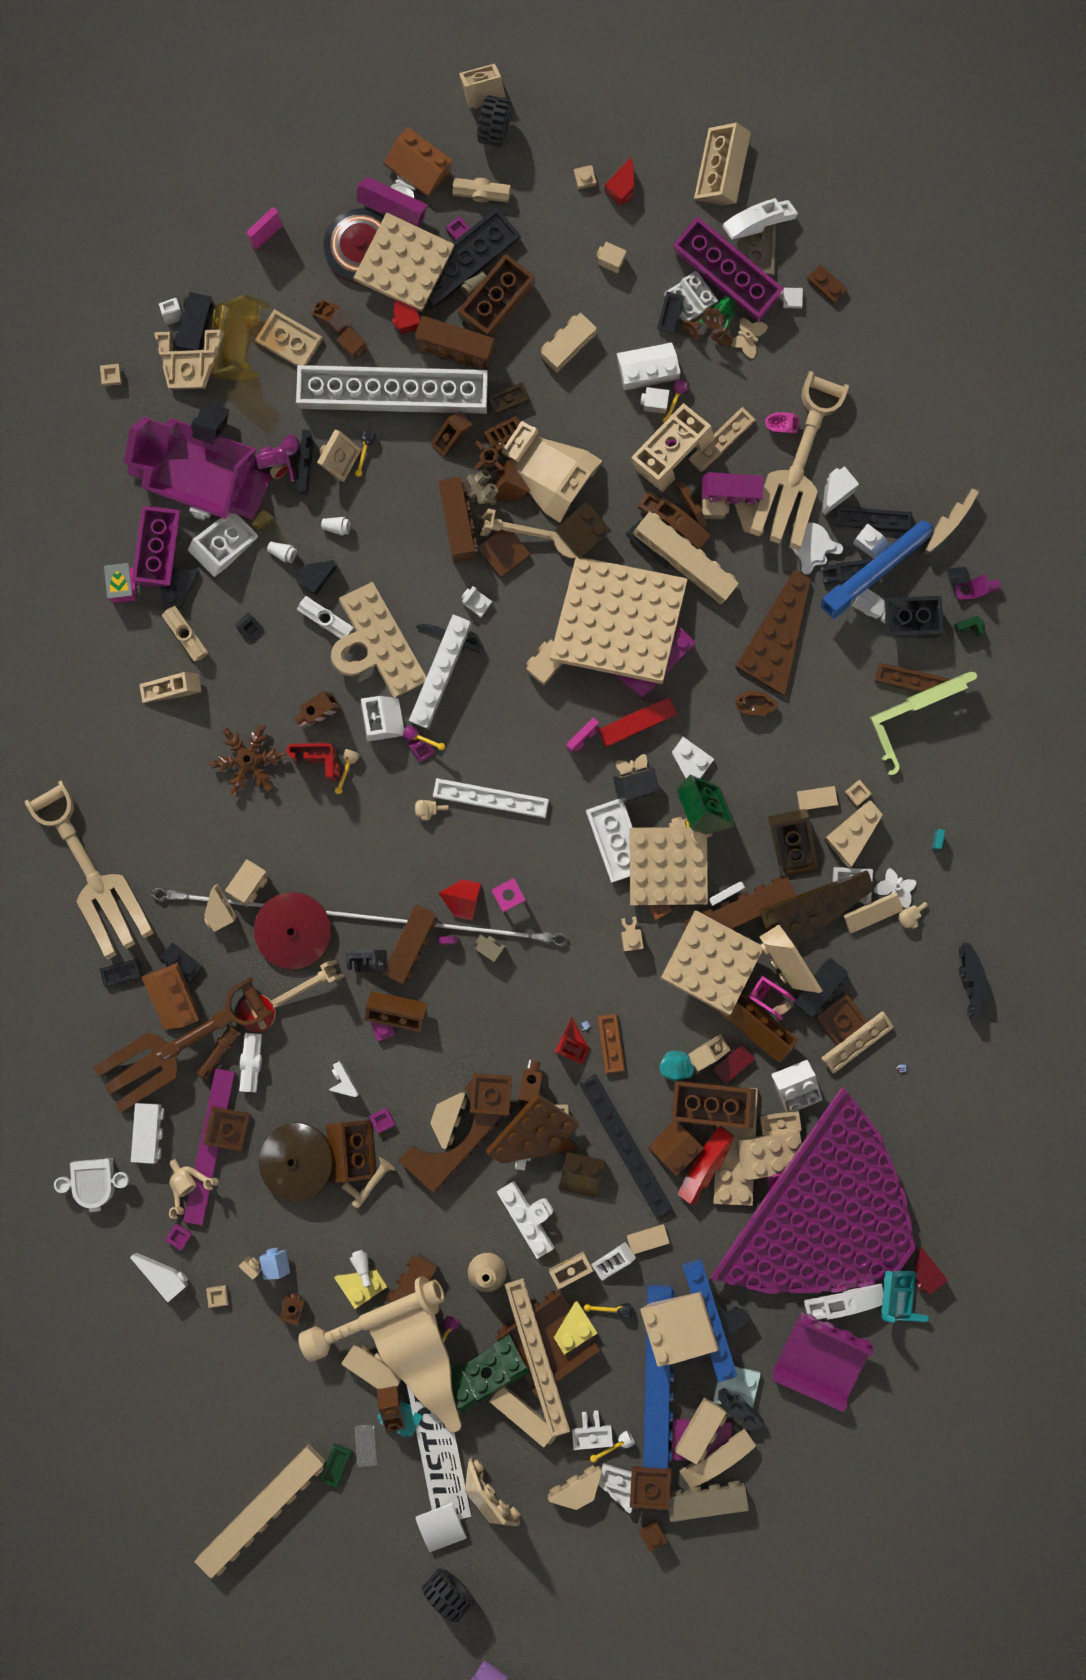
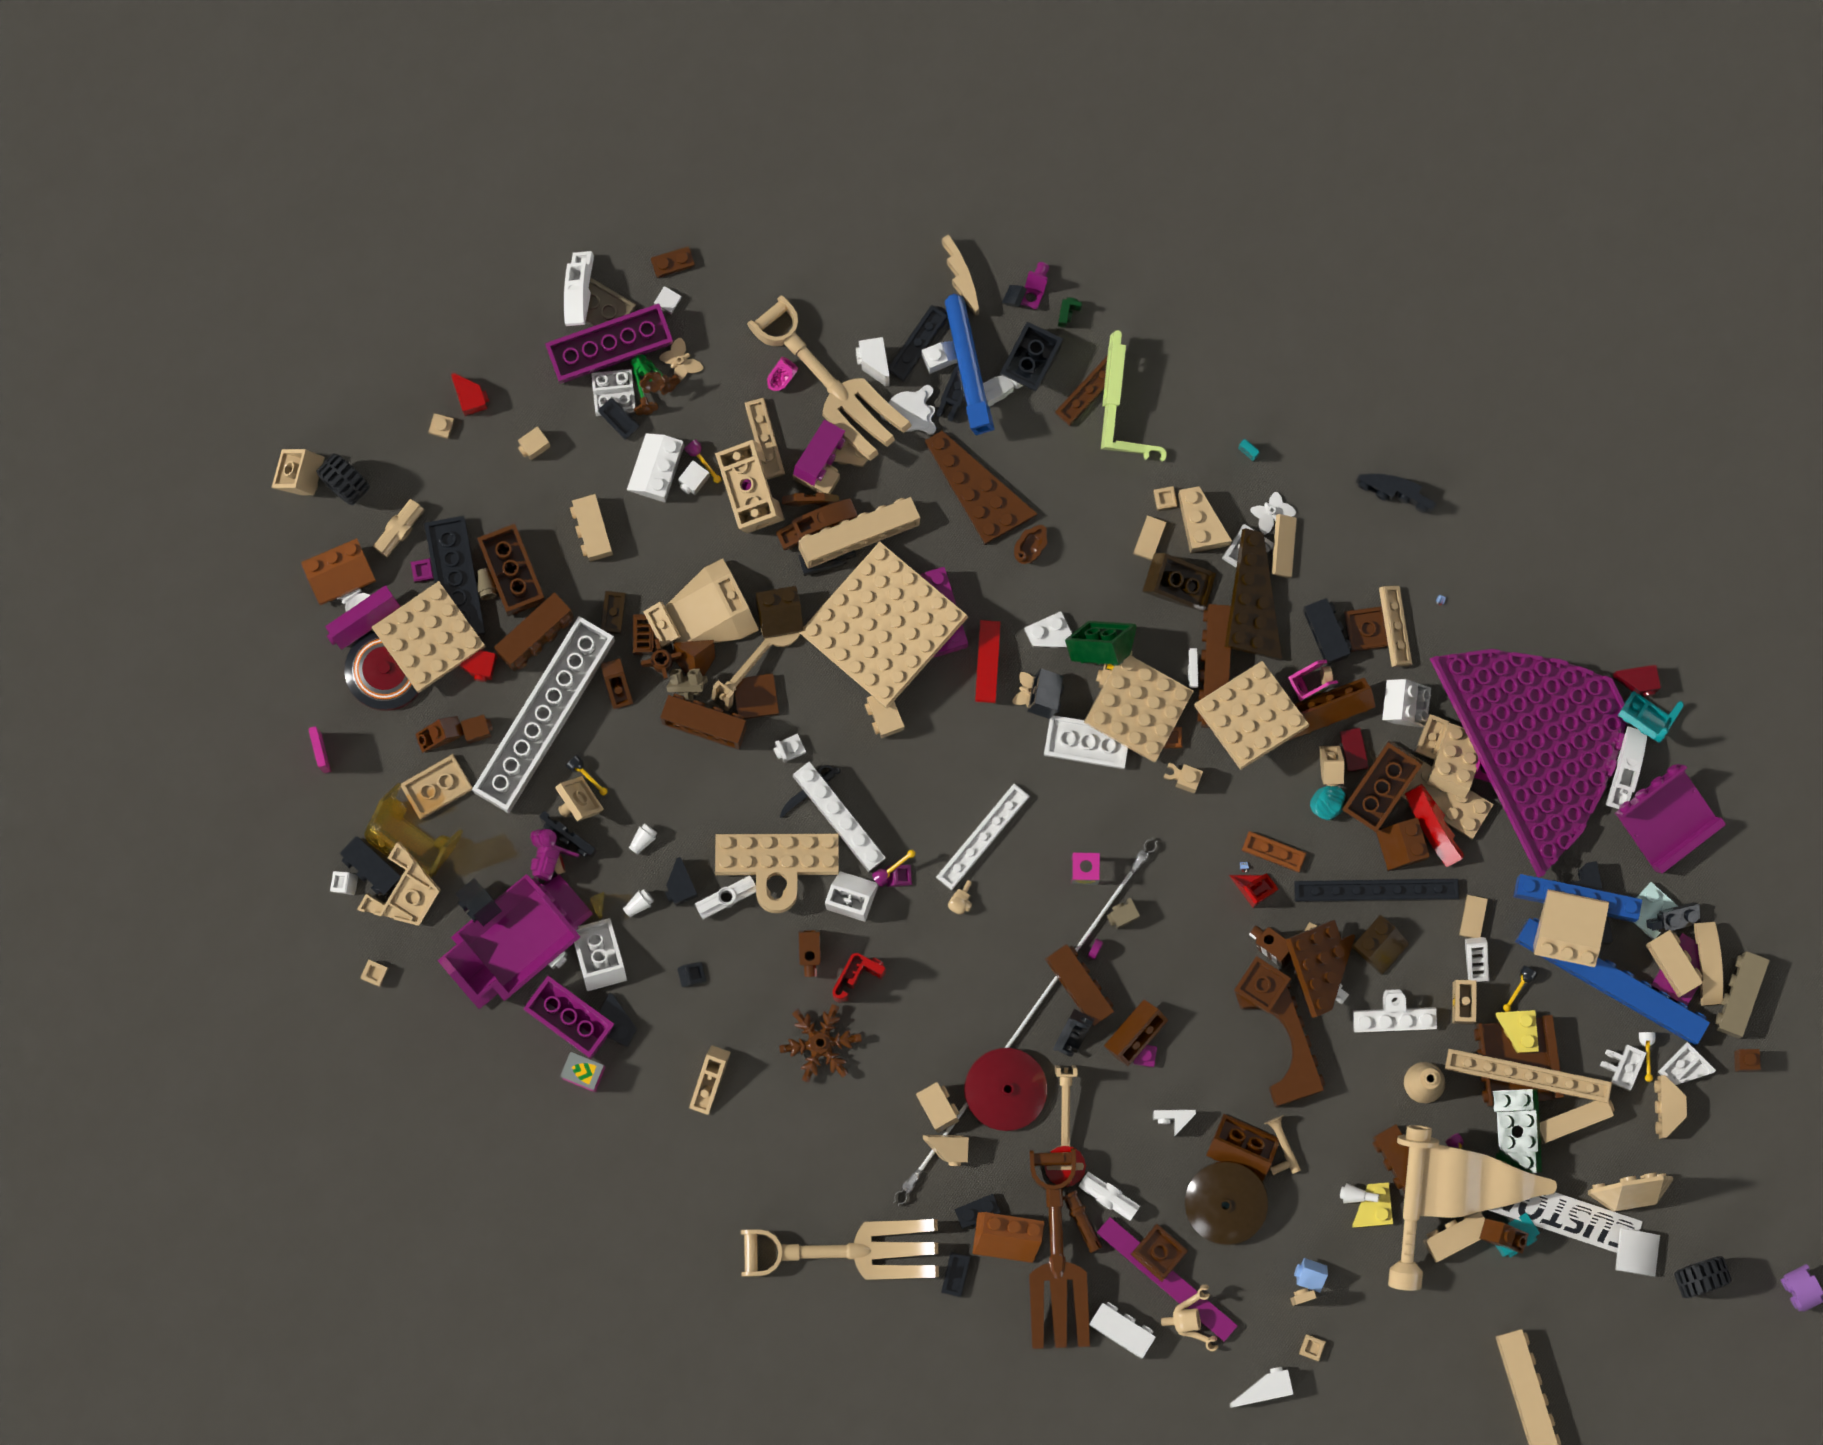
camera: 65 degrees left, 5 degrees down
(92, 1182) = (1141, 1407): white piece -> none
(178, 1236) = (1236, 1353): magenta plate -> none
(179, 624) = (652, 1038): tan piece -> none
(292, 1317) = (1363, 1290): reddish brown brick -> none
(335, 1465) = (1528, 1321): dark green tile -> none
(350, 758) = (872, 946): hinge -> none
(365, 1445) = (1525, 1283): clear tile -> none
(382, 1120) = (1230, 1103): magenta tile -> none
(446, 1118) = (1261, 1040): tan slope -> none
(461, 898) = (1063, 914): red slope -> none
(588, 730) = (970, 711): dark pink plate -> none
(650, 1488) = (1702, 1037): reddish brown tile -> none
(722, 164) = (504, 294): tan slope -> none
(788, 960) = (1288, 644): tan slope -> none
(910, 916) = (1304, 514): tan piece -> none

